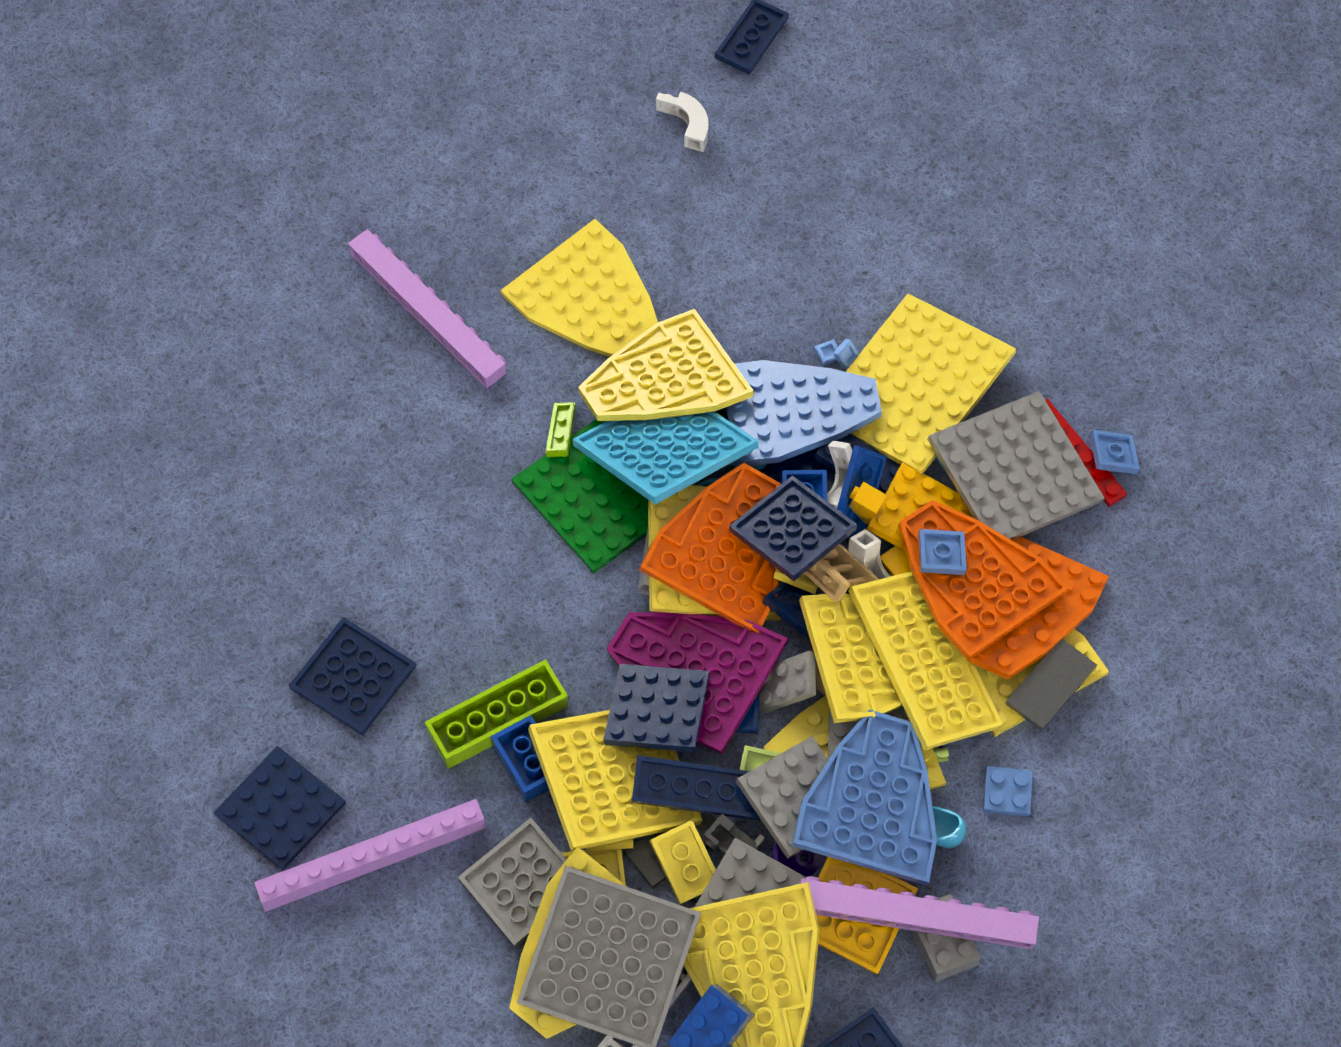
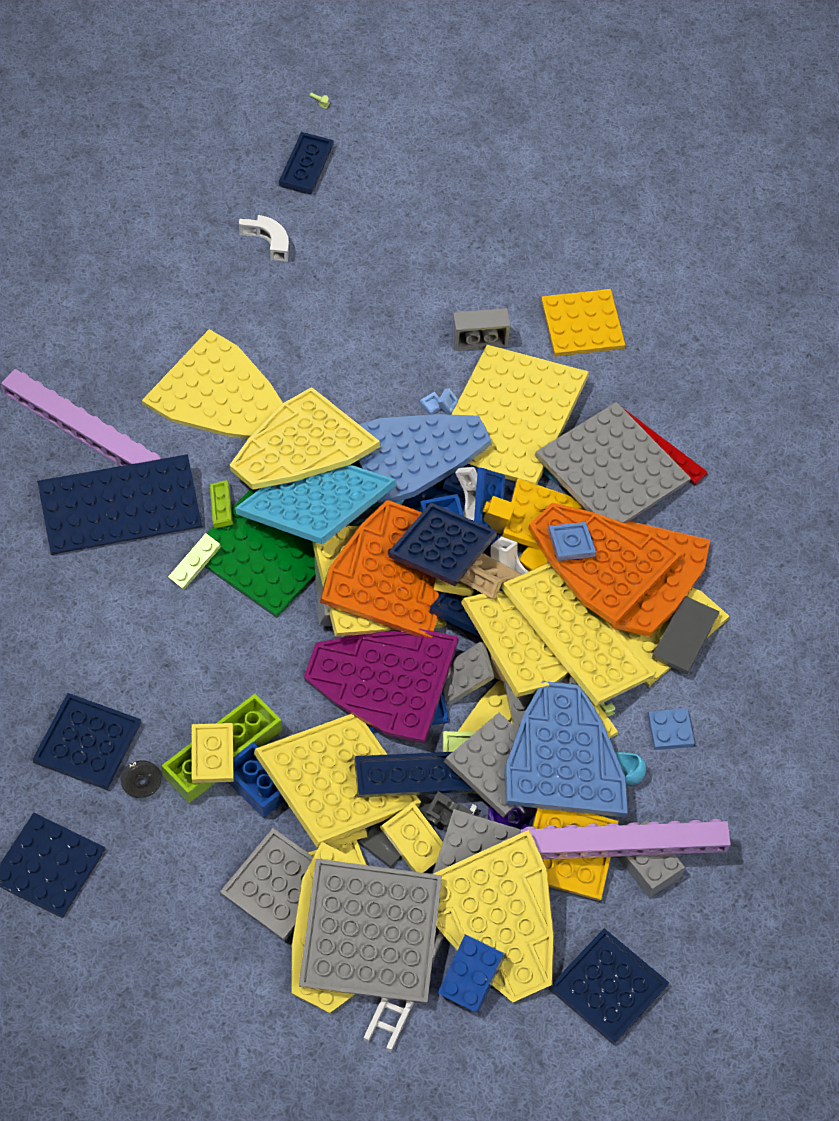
camera: 15 degrees left, 5 degrees down
(370, 855) = (137, 889): lavender brick -> none
(398, 722) = (139, 771): none -> clear smoke dish
(447, 409) = (119, 504): none -> dark blue plate
(482, 719) = (212, 753): none -> light yellow plate
(516, 491) = (194, 561): none -> yellowish green plate
(657, 708) = (360, 715): dark blue plate -> none
(903, 274) = (480, 328): none -> light grey brick
(1026, 285) = (582, 322): none -> yellow plate
(1114, 452) = (689, 440): medium blue plate -> none

